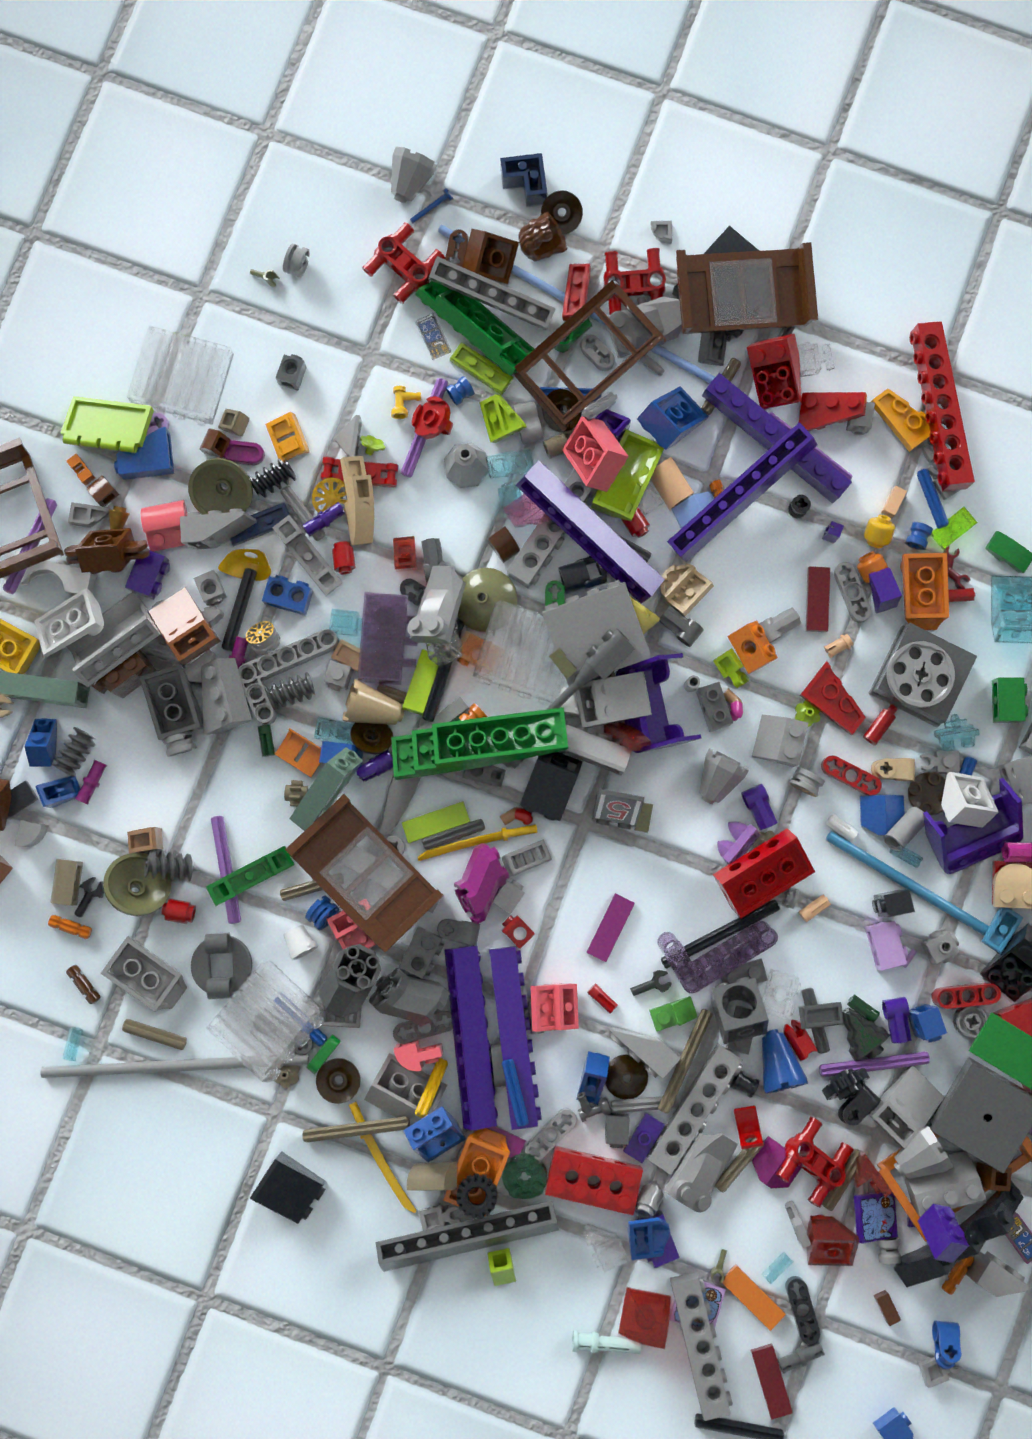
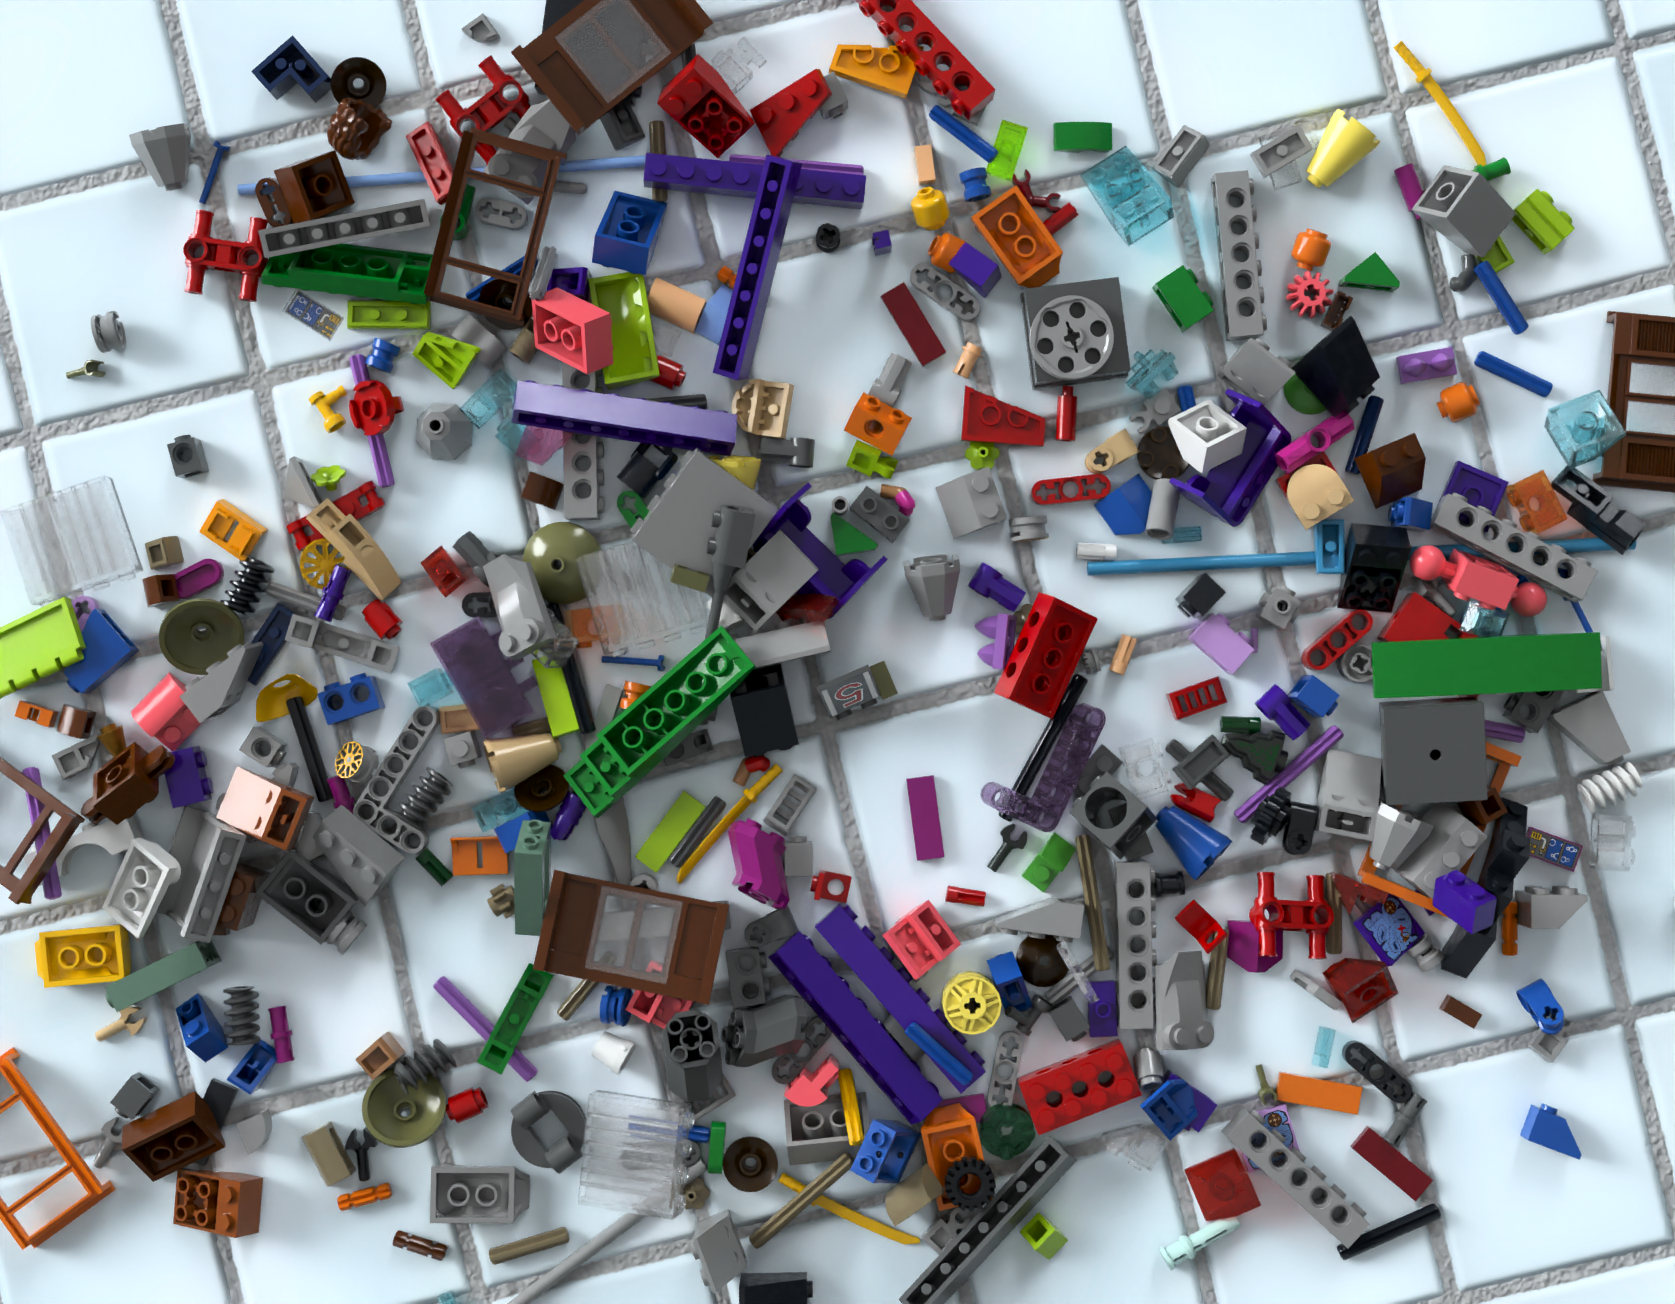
camera: 30 degrees left, 5 degrees up
(278, 1124) = (718, 1249): none -> light grey slope
(503, 706) = (636, 661): none -> blue piece
(557, 1059) = (959, 991): none -> light yellow wheel
(645, 1096) = (1077, 972): none -> clear tile
(683, 709) = (849, 539): none -> green slope
(828, 964) = (1175, 704): none -> red slope

